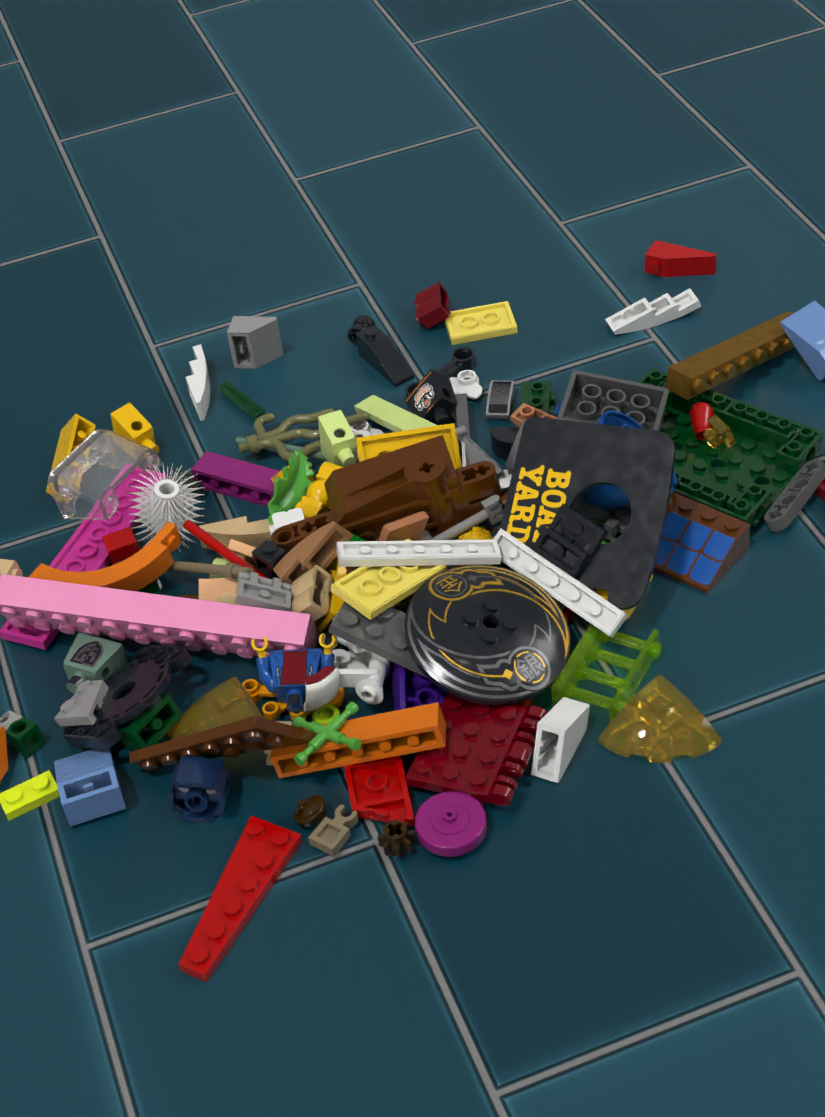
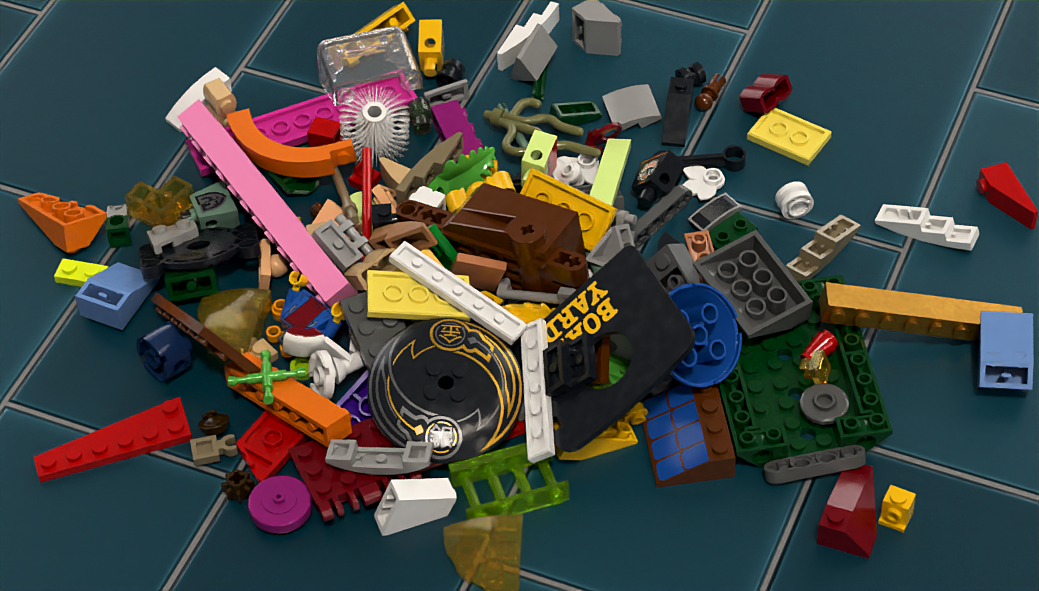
camera: 40 degrees right, 5 degrees up
(41, 692) = (162, 205): none -> clear yellow brick
(171, 443) = (451, 72): none -> black wheel
(187, 455) = (447, 93): none -> light grey slope
(193, 553) = (355, 179): none -> red tile
(202, 669) = (270, 265): none -> light nougat tile
(226, 388) = (533, 55): none -> light grey slope
(257, 499) = (430, 166): none -> dark tan slope
(306, 404) = (569, 111): none -> dark green slope
(343, 376) = (632, 106): none -> light grey slope
(348, 404) = (596, 137): none -> dark red piece
(363, 693) = (323, 373): none -> white tile
(389, 329) = (709, 93): none -> reddish brown pin
(504, 719) = (379, 460): none -> light grey slope
(547, 352) = (794, 200): none -> white wheel
(602, 359) = (823, 248): none -> dark tan slope
(752, 452) = (824, 403): none -> dark grey wheel

